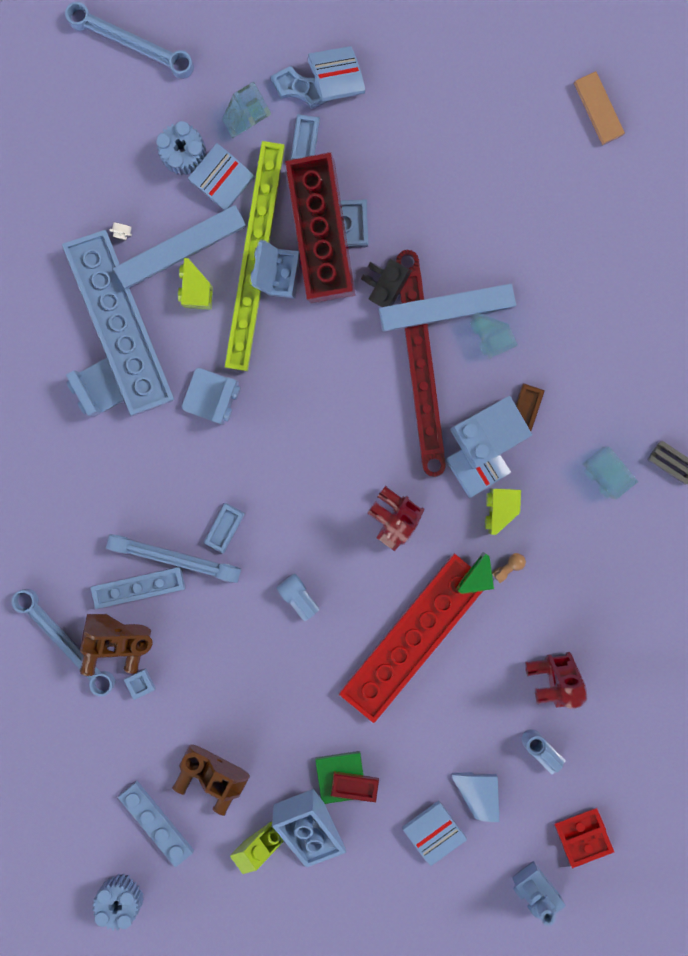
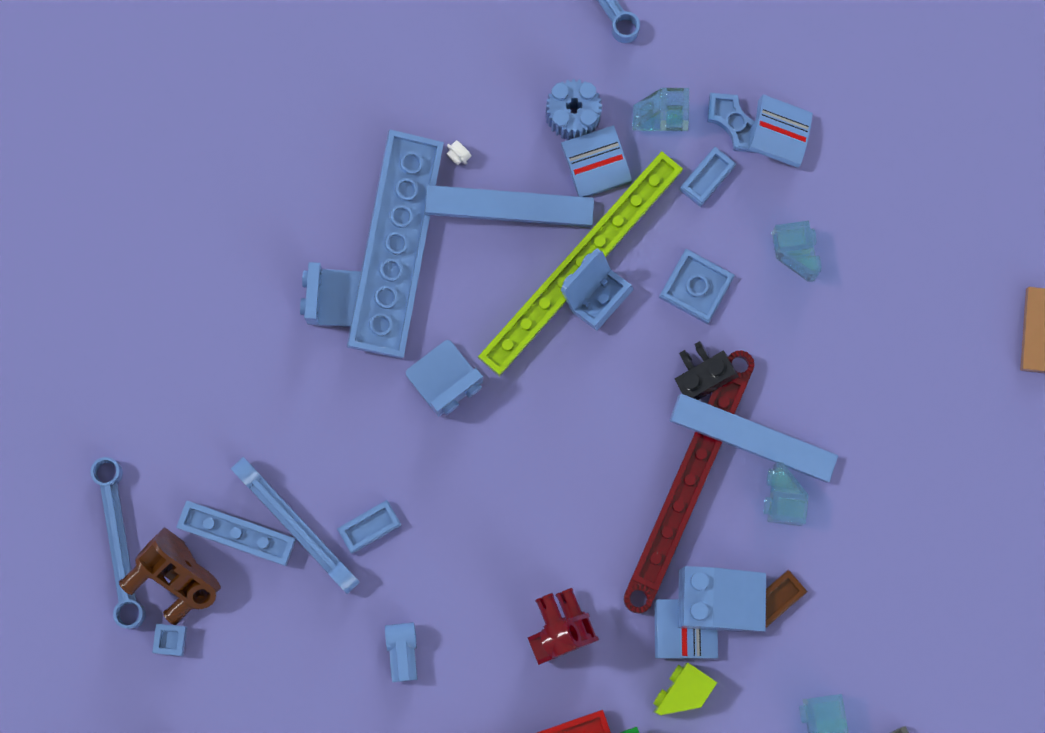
camera: 30 degrees right, 10 degrees down
(195, 289) = (499, 258): lime slope -> none
(320, 228) = (668, 276): dark red brick -> none
(397, 153) = (795, 248): none -> clear light blue slope

